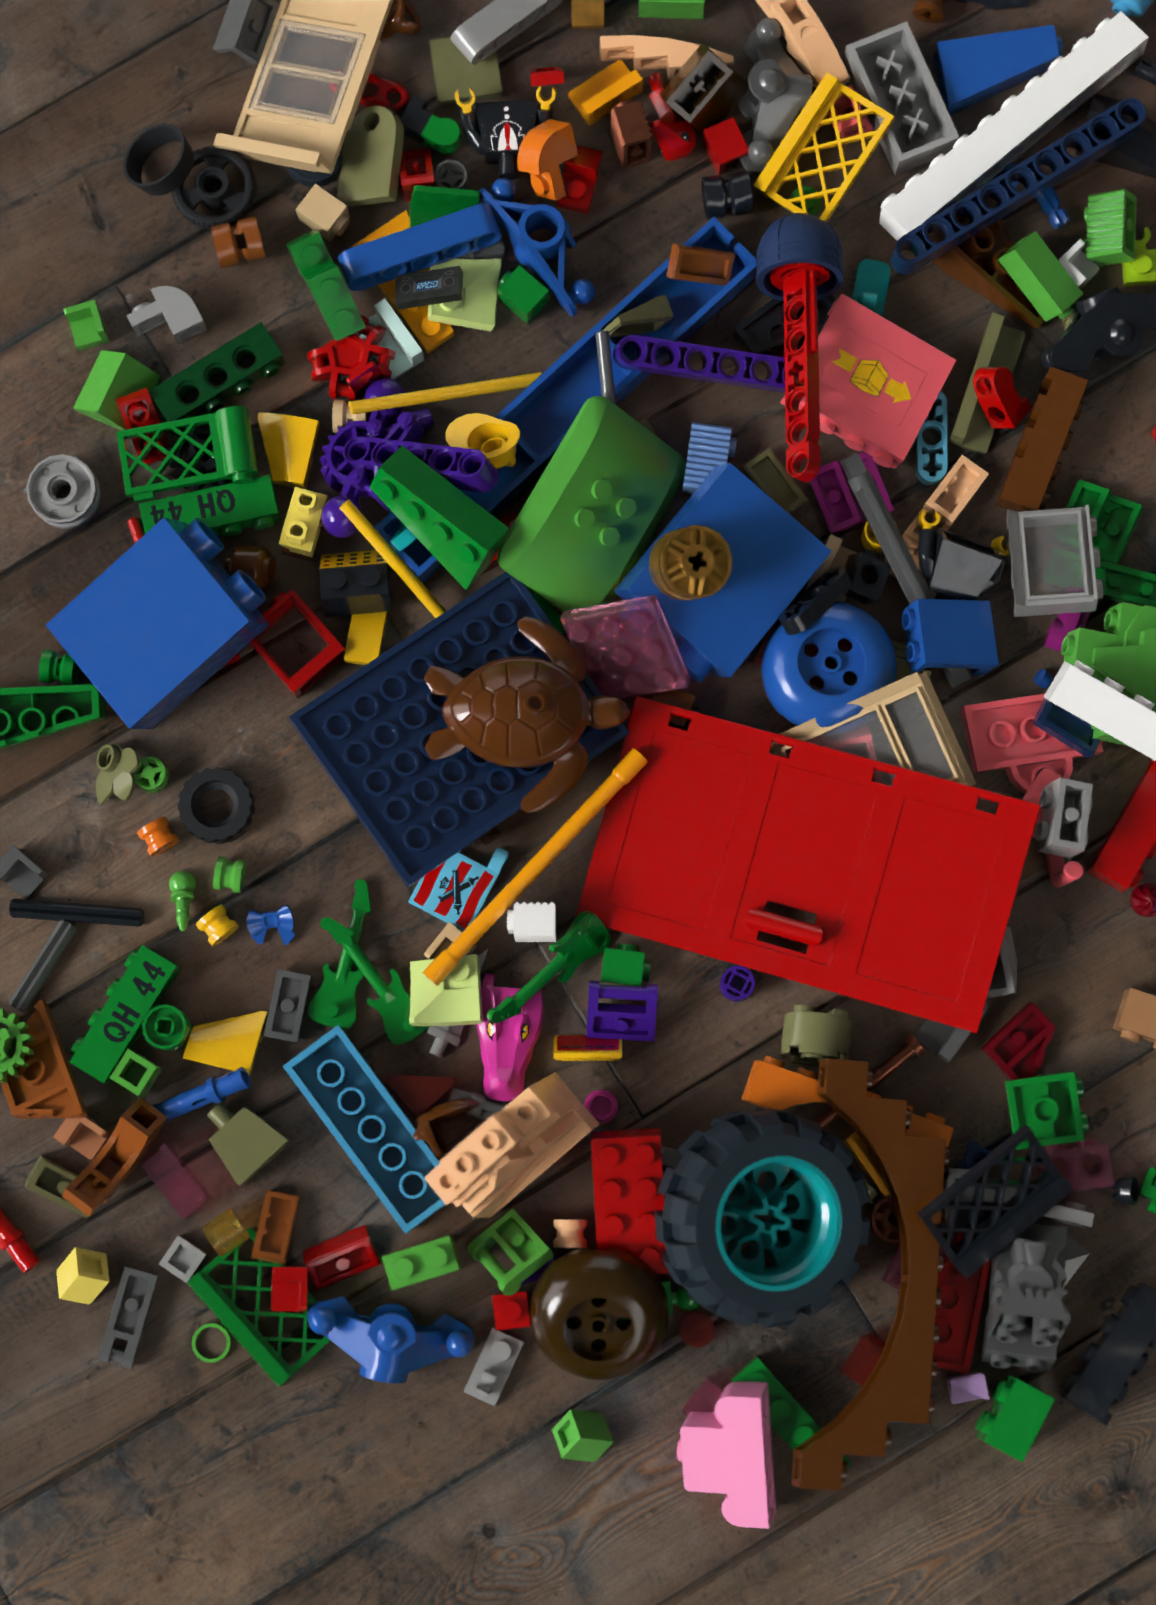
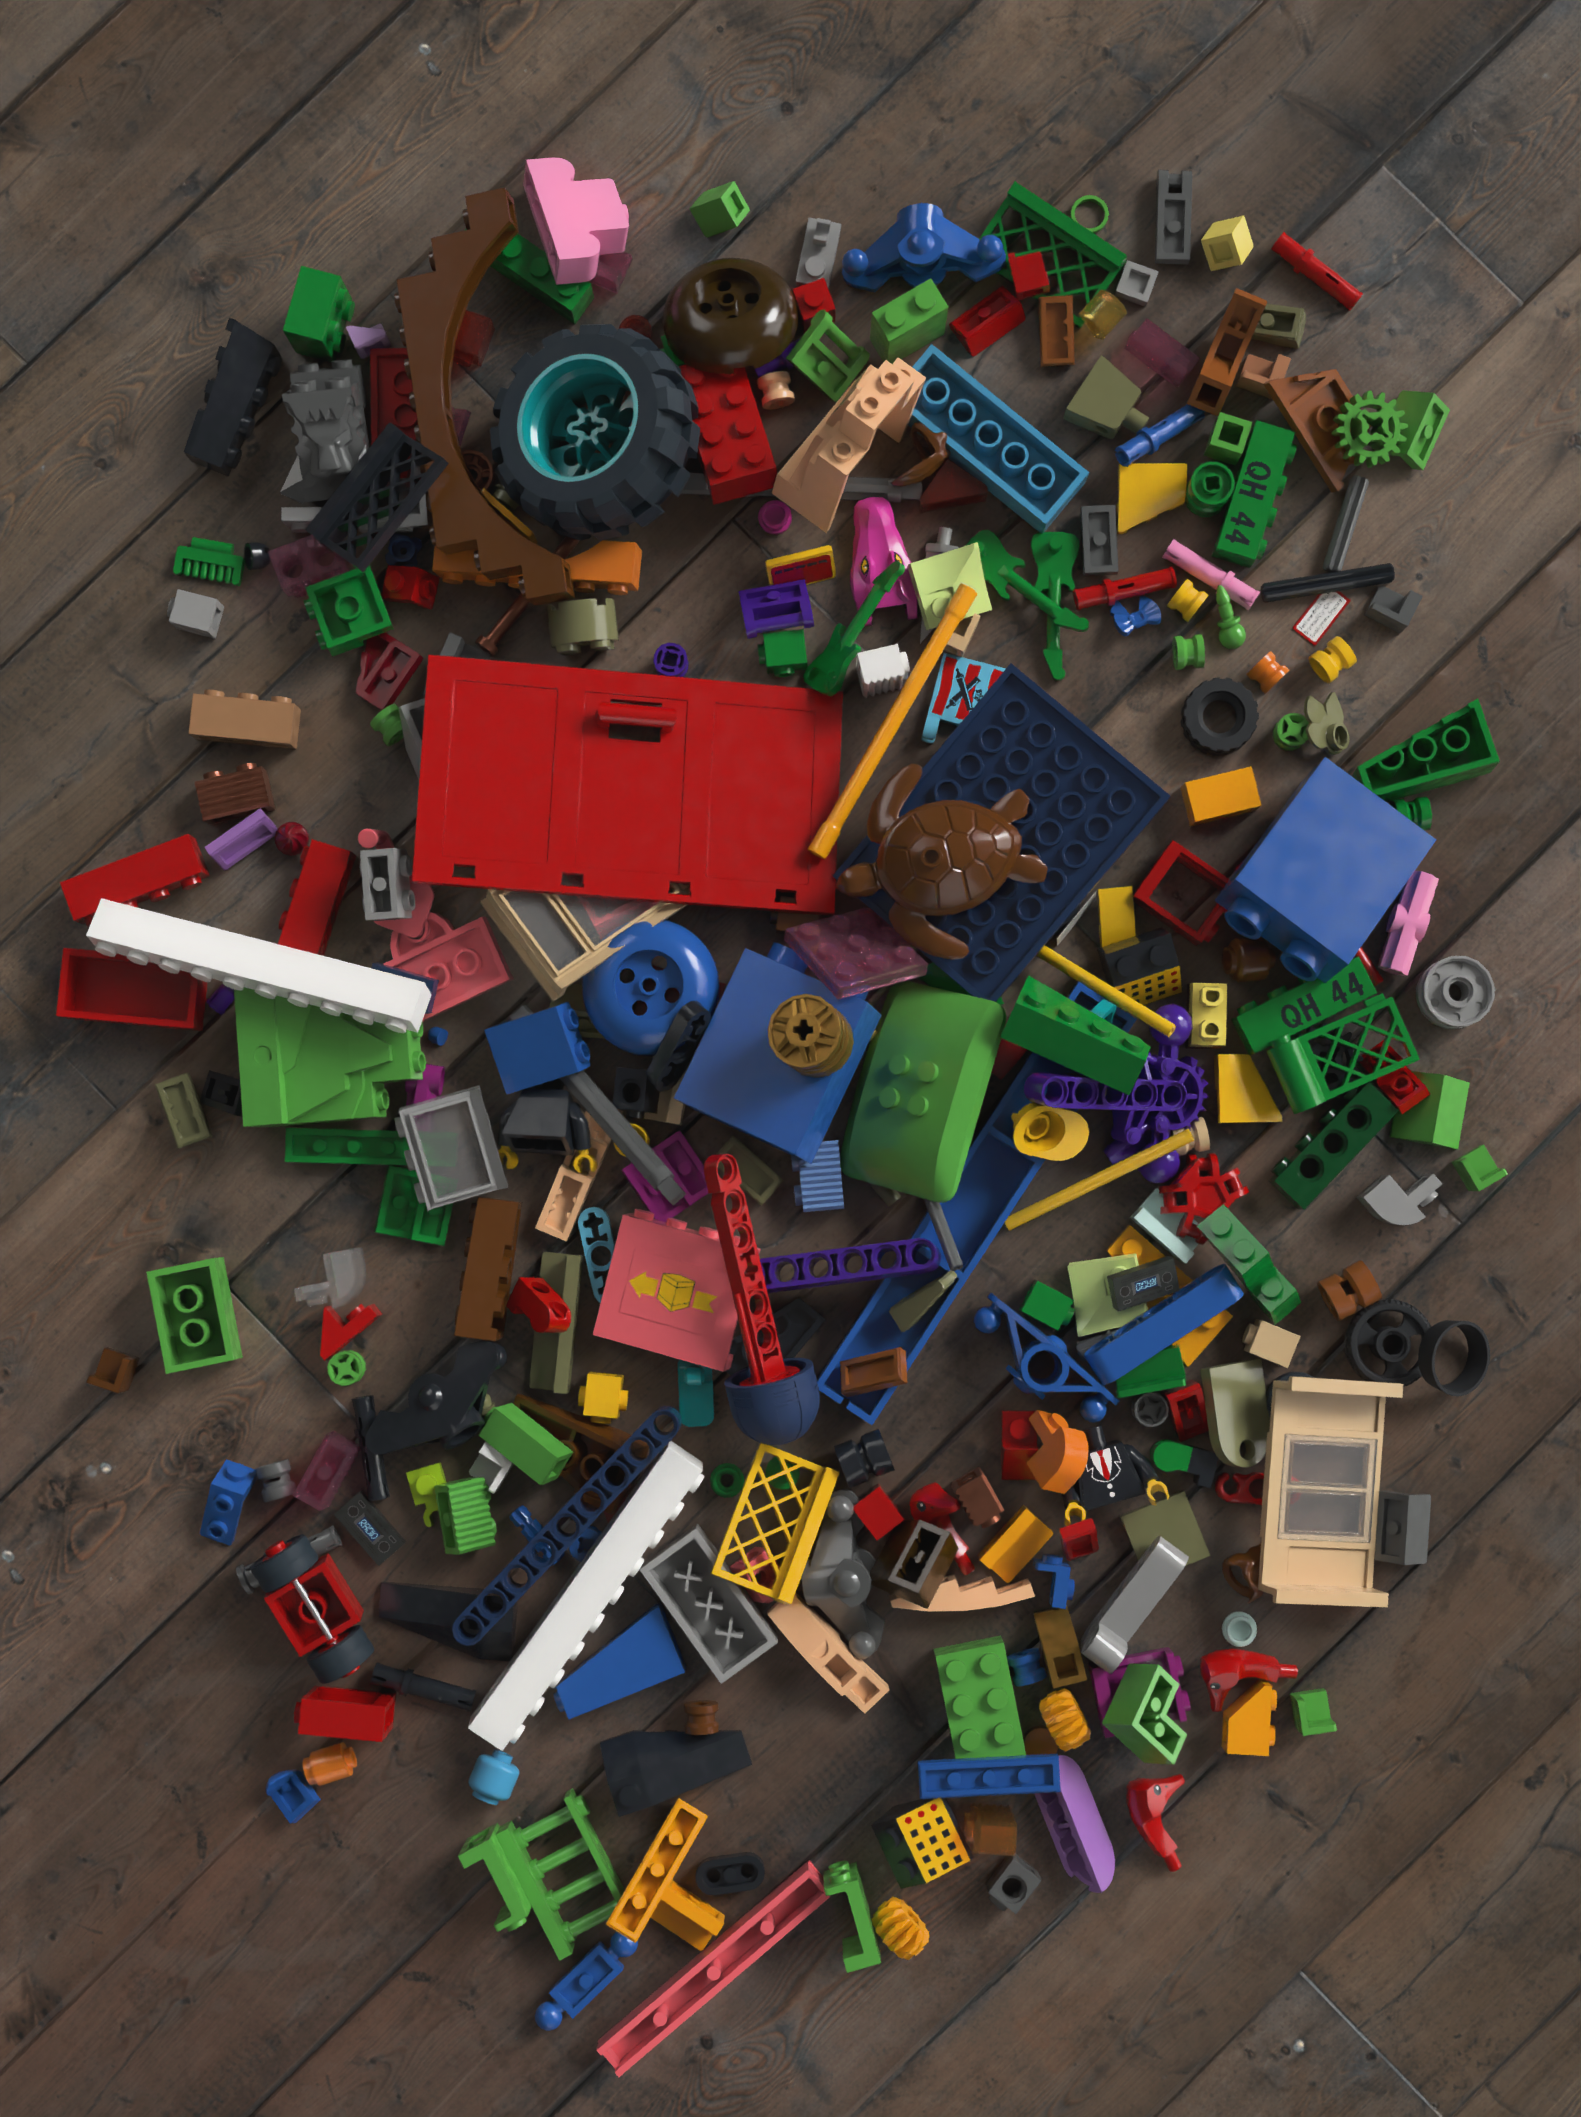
camera: 170 degrees right, 5 degrees up
(90, 561) = (1408, 923): none -> bright pink piece
(91, 883) = (1321, 616): none -> white sticker
(92, 834) = (1333, 659): none -> yellow wheel
(187, 946) = (1210, 574): none -> bright pink pin
(235, 726) = (1220, 796): none -> light orange panel
(275, 953) = (1120, 589): none -> red pin
(572, 44) = (1061, 1586): none -> blue bracket
(863, 199) = (719, 1488): none -> green plate
(958, 306) = (603, 1397): none -> yellow brick
(979, 1122) = (410, 585): none -> red bracket
(1028, 987) = (388, 724): none -> bright green wheel

